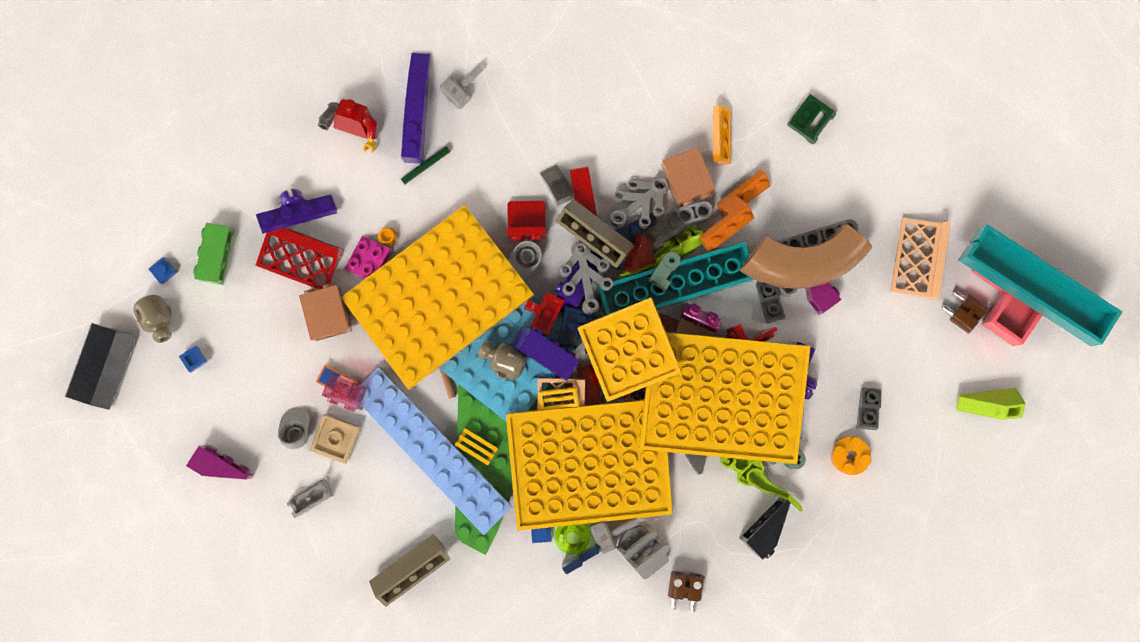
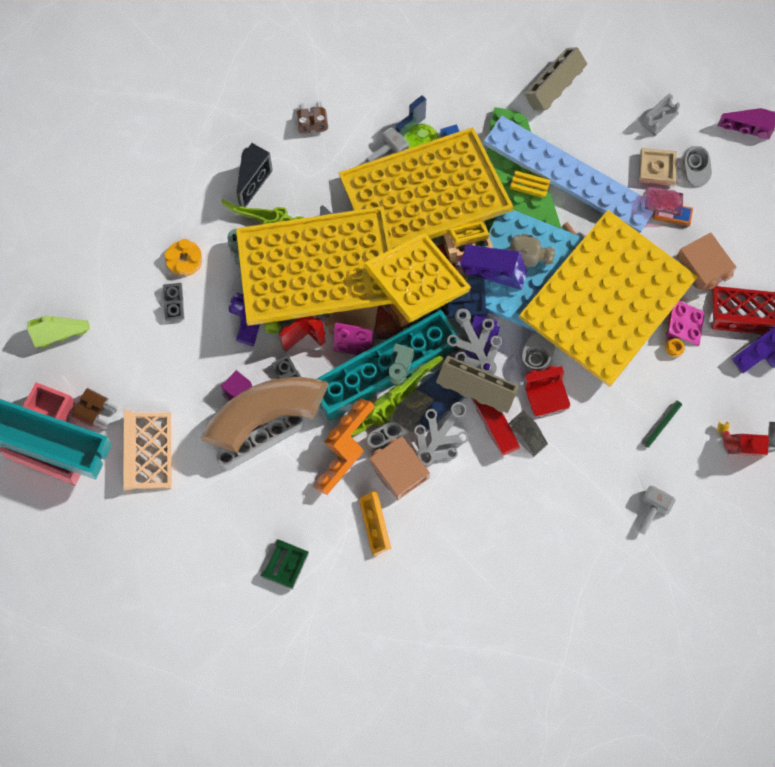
camera: 170 degrees right, 15 degrees down
(415, 109) = (692, 475): dark purple slope -> none
(545, 313) = (503, 301): red plate -> none
(640, 256) = (427, 376): clear red slope -> none
(643, 550) = (358, 136): light grey piece -> none

